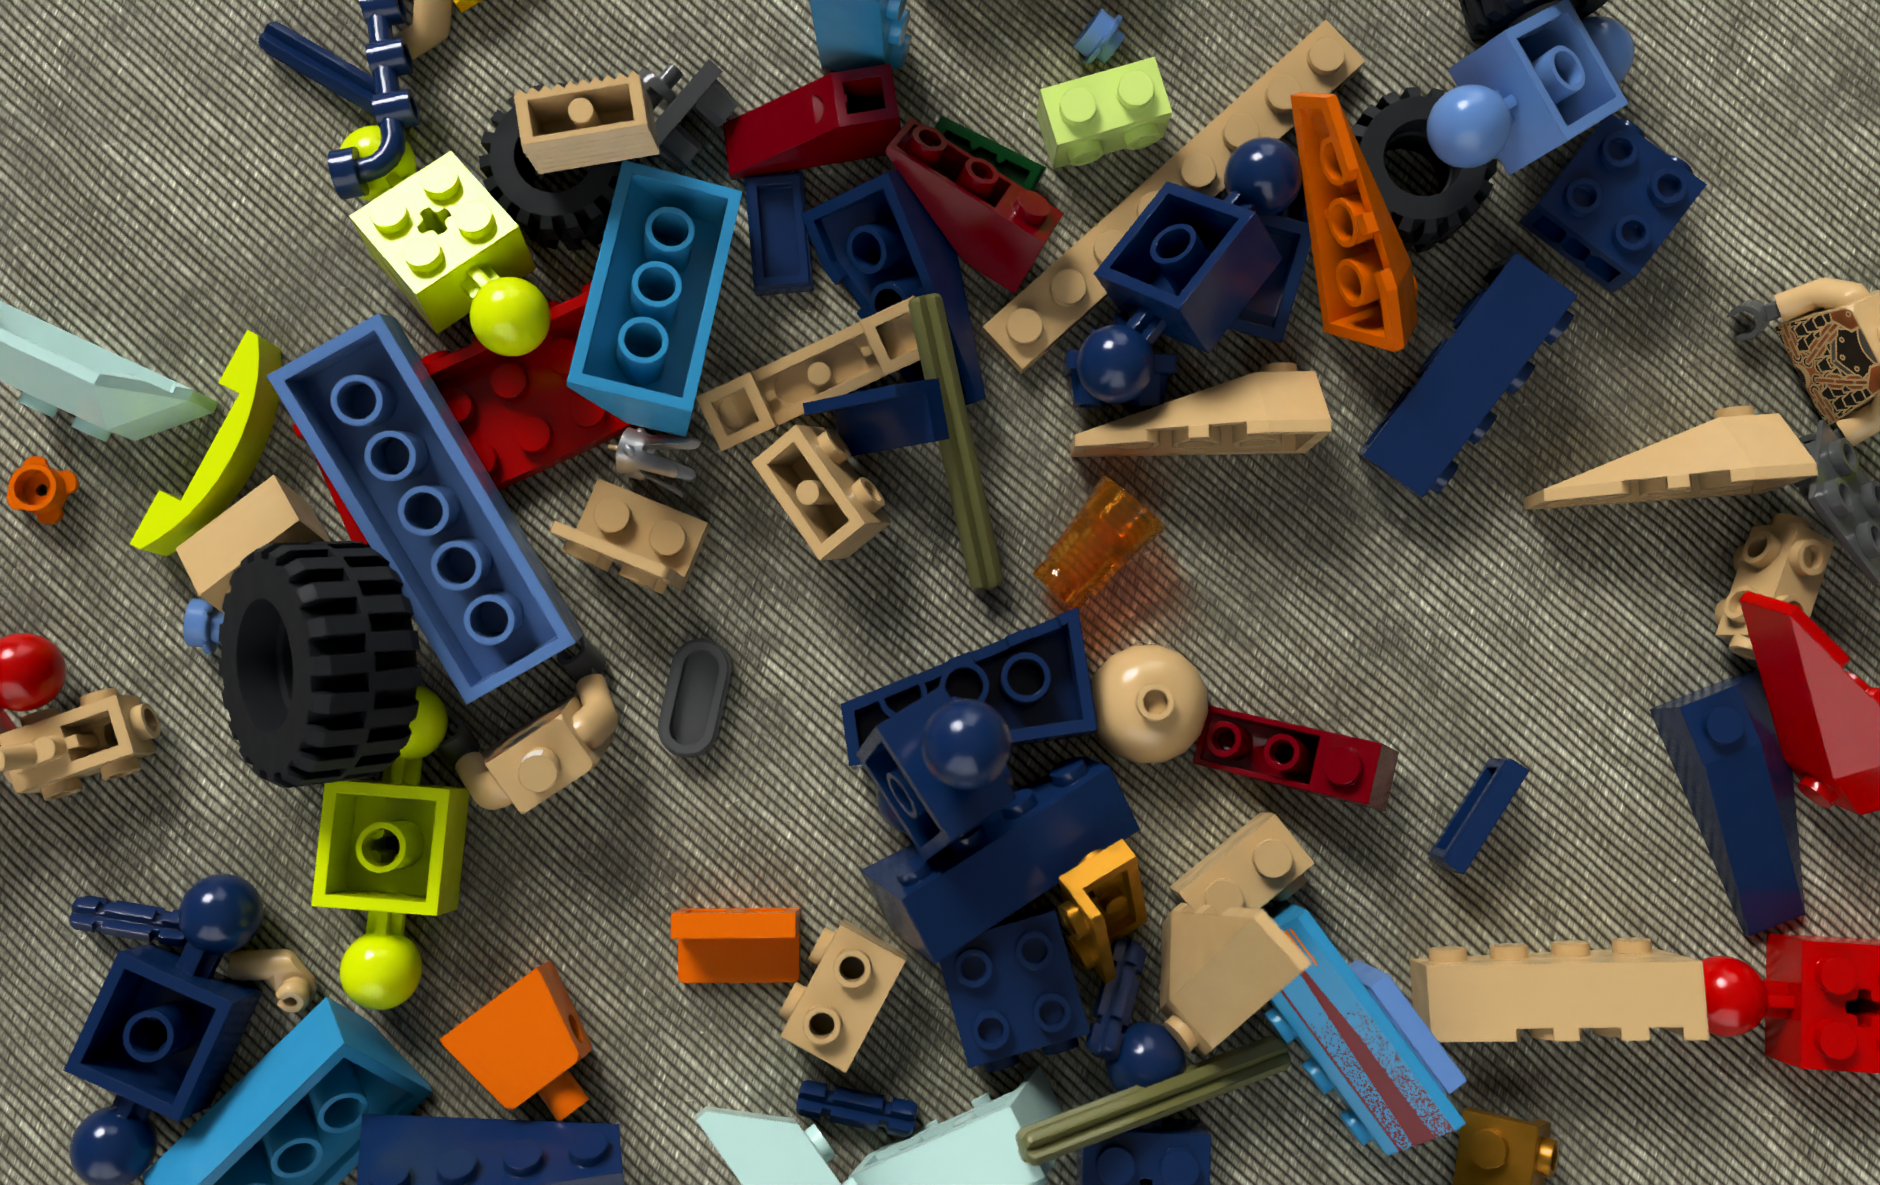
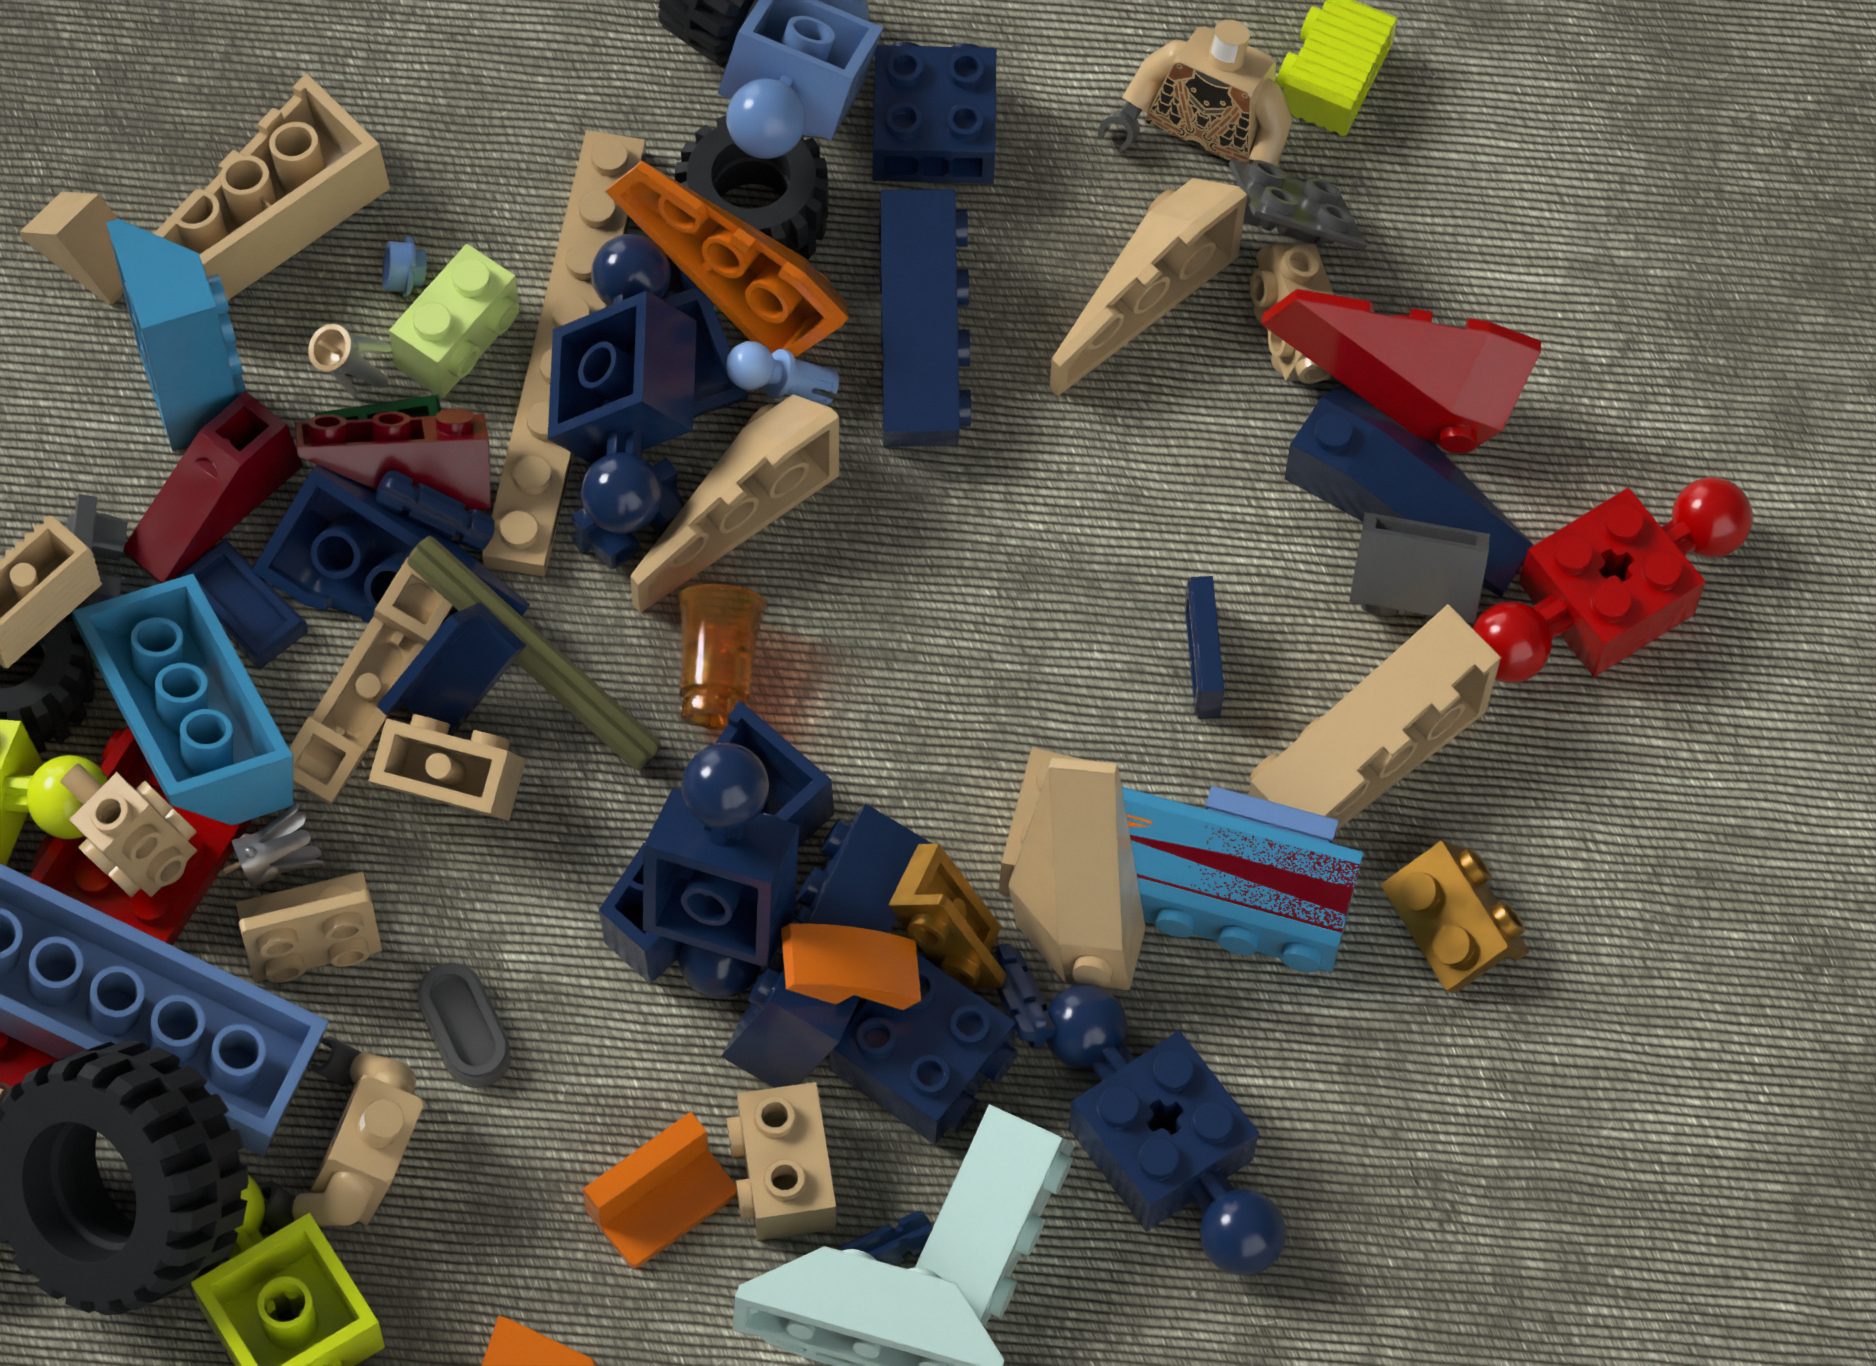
camera: 40 degrees left, 20 degrees down
(524, 381) = (130, 831): none -> tan brick
(966, 268) = (435, 510): none -> dark blue axle
(987, 912) = (850, 961): none -> orange slope
(990, 78) = (339, 352): none -> piece
(1142, 1105) = (1109, 1033): olive axle -> none
(1148, 704) = (867, 749): tan cylinder -> none
(1297, 757) = (1023, 705): dark red slope -> none
(1319, 343) = (779, 373): none -> light blue pin
(1700, 882) = (1418, 567): none -> dark grey piece

